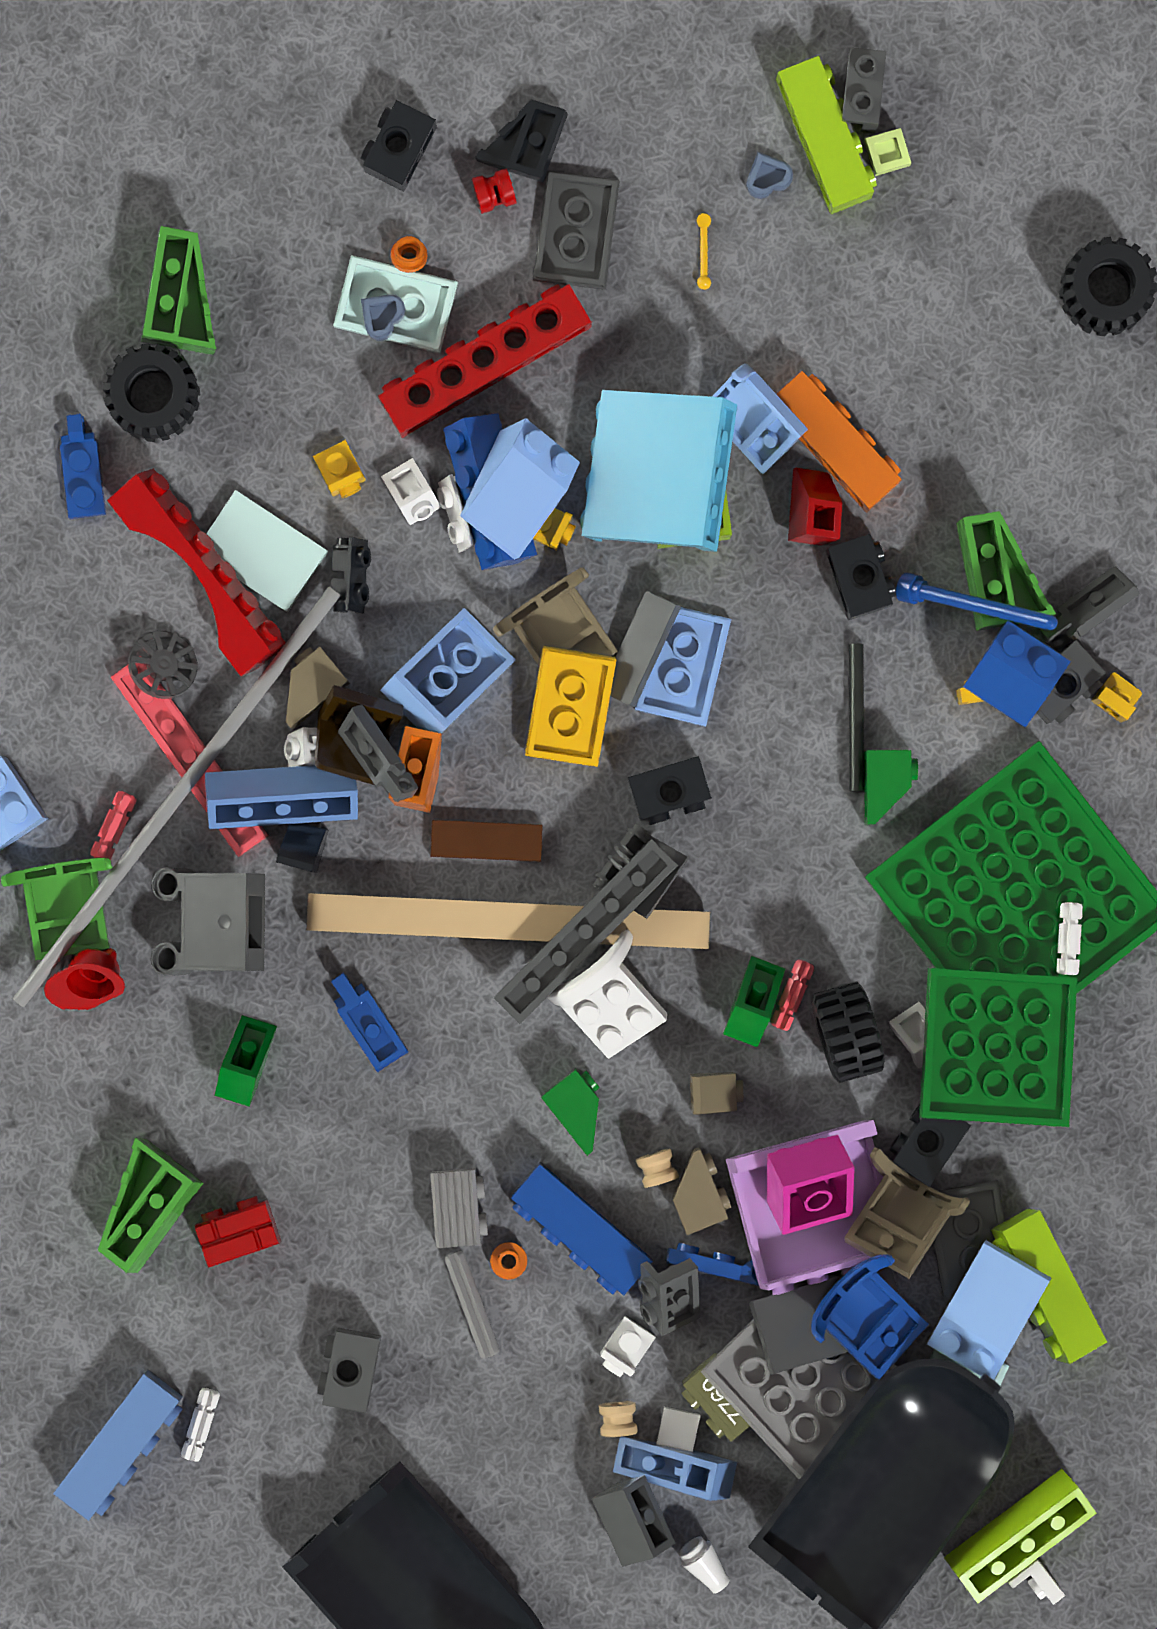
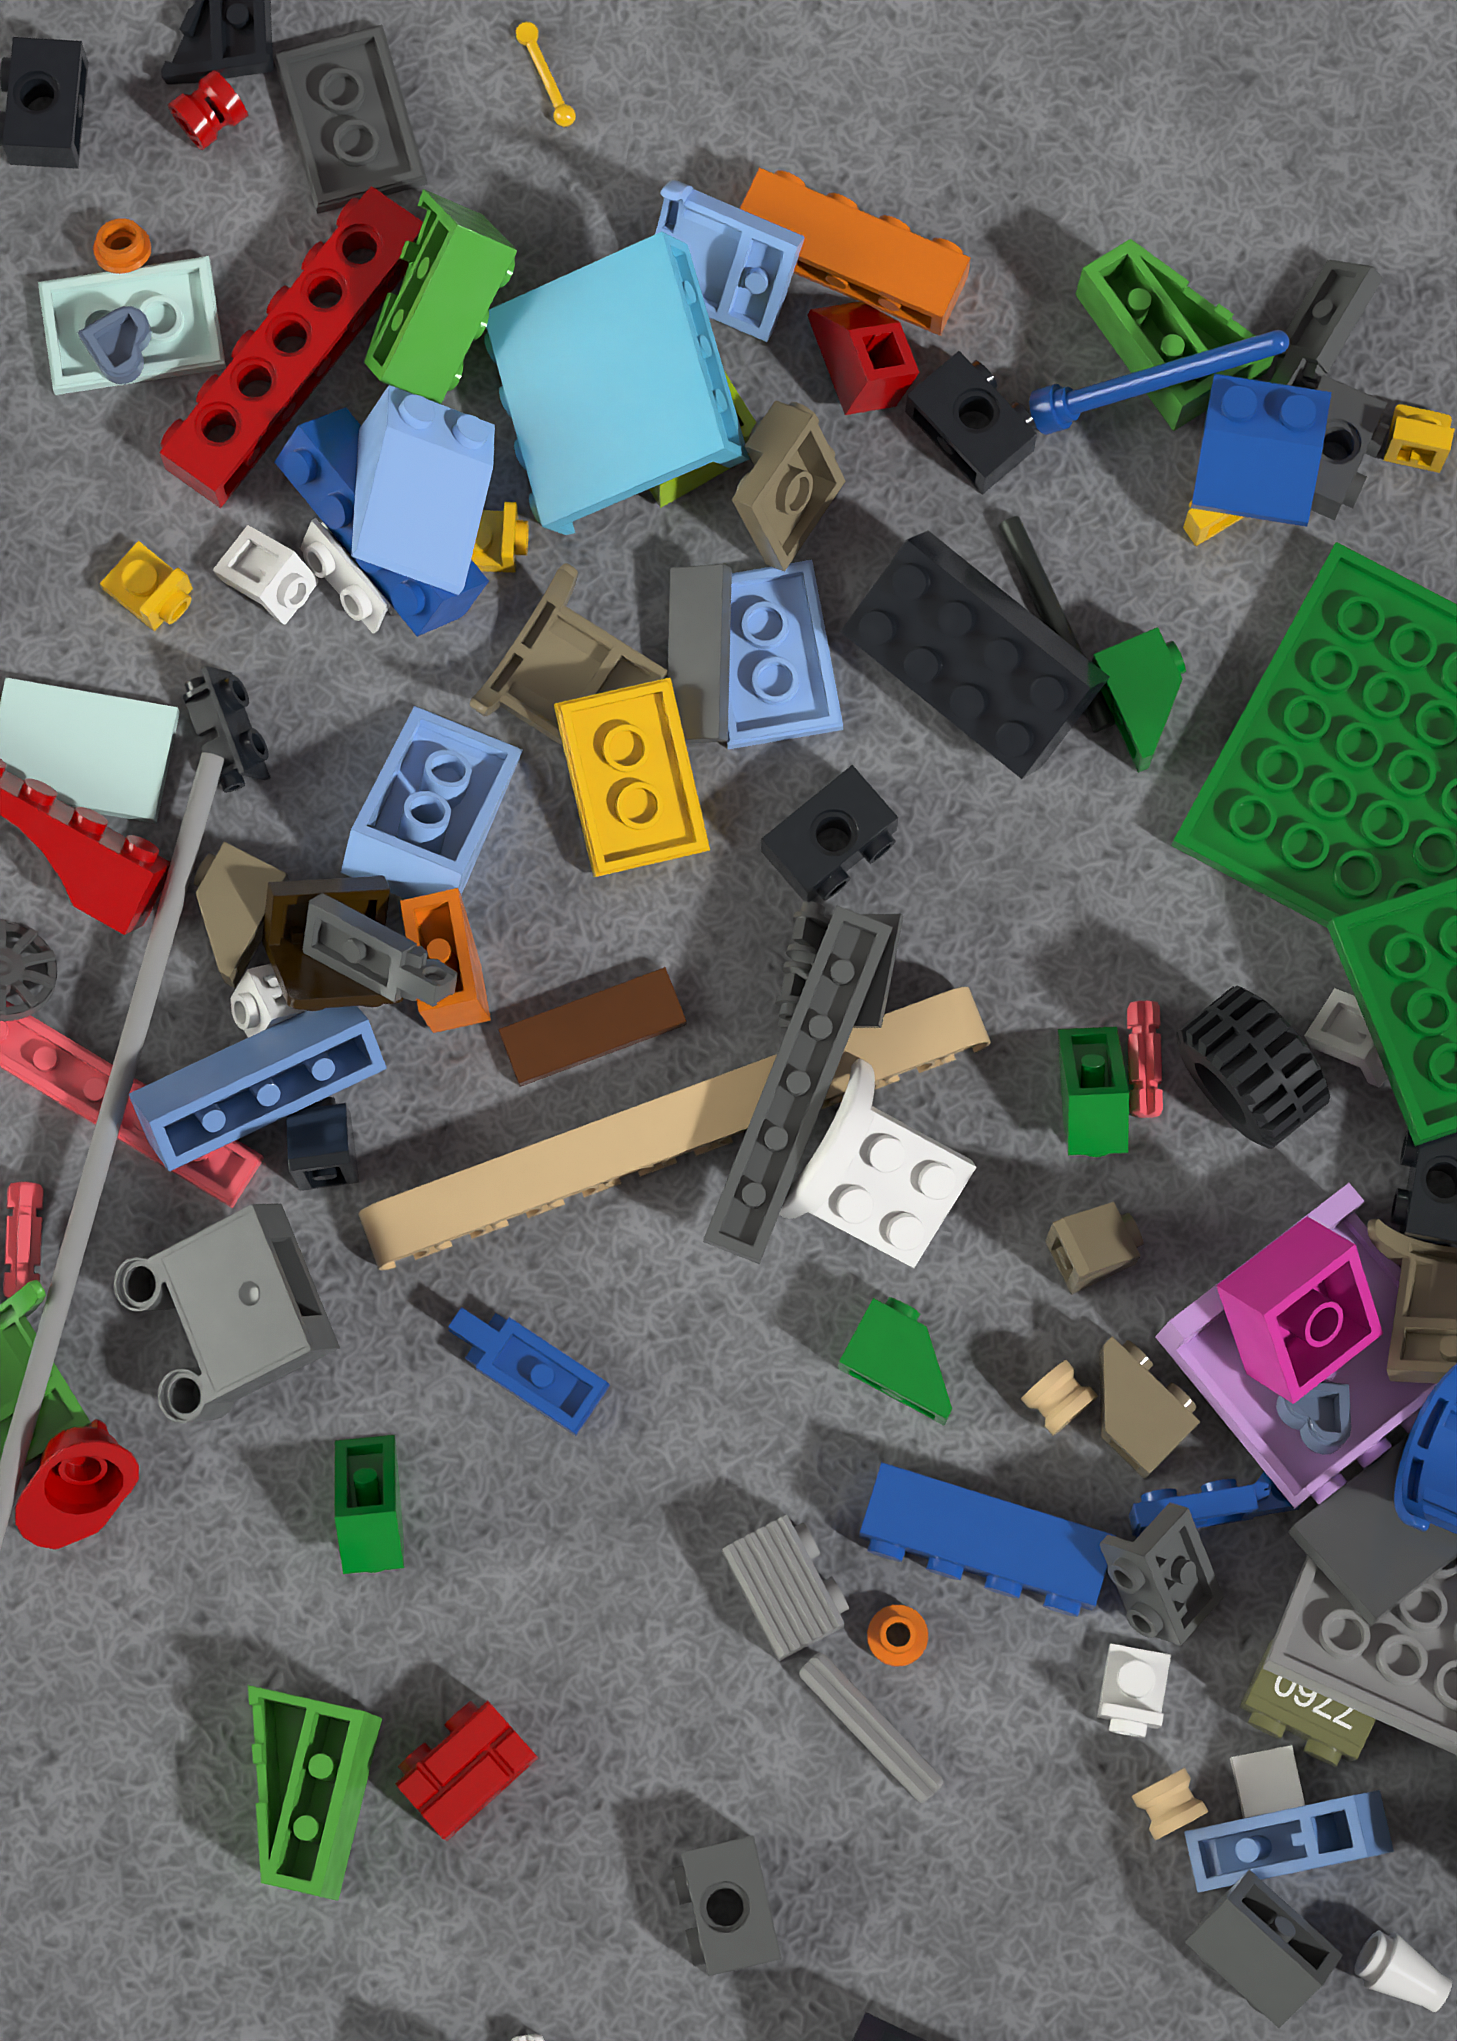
camera: 20 degrees left, 10 degrees down
(582, 373) = (442, 299): none -> bright green wedge
(736, 574) = (789, 482): none -> dark tan plate
(797, 1246) = (1320, 1416): none -> sand blue tile
(798, 720) = (974, 654): none -> black brick

